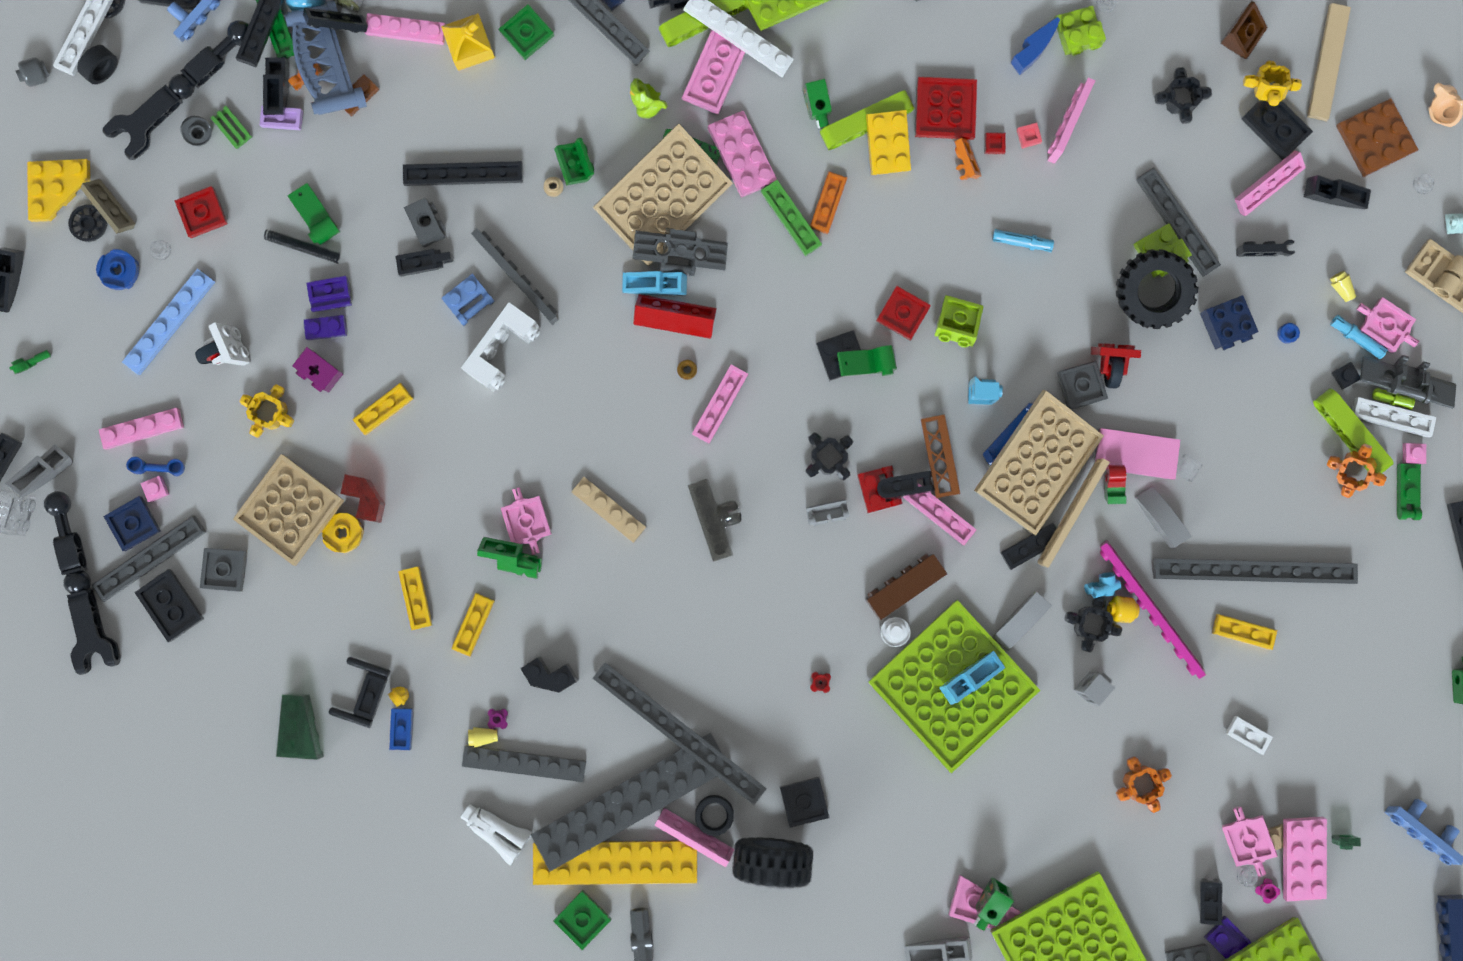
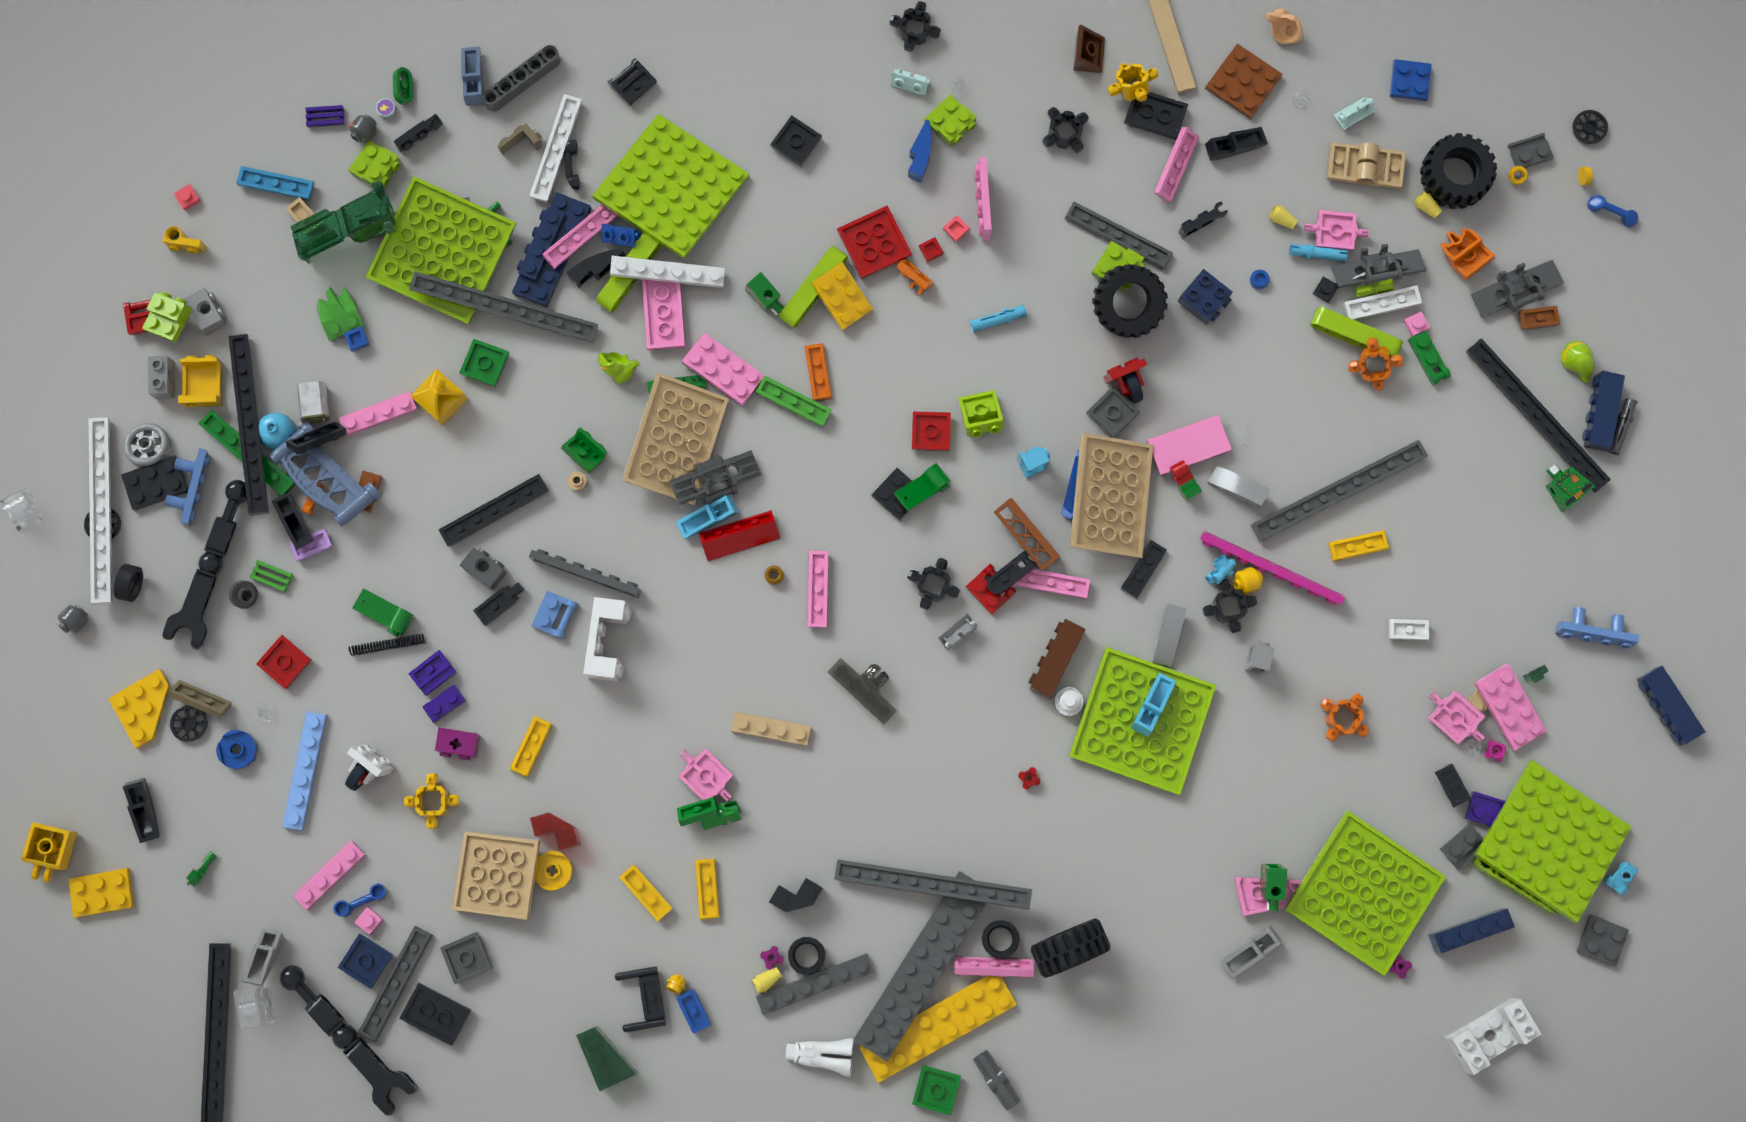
camera: 25 degrees left, 5 degrees down
(529, 749) = (821, 955): none -> black tyre
(804, 802) = (1070, 886): black plate -> none
(1073, 512) = (1162, 522): tan tile -> none

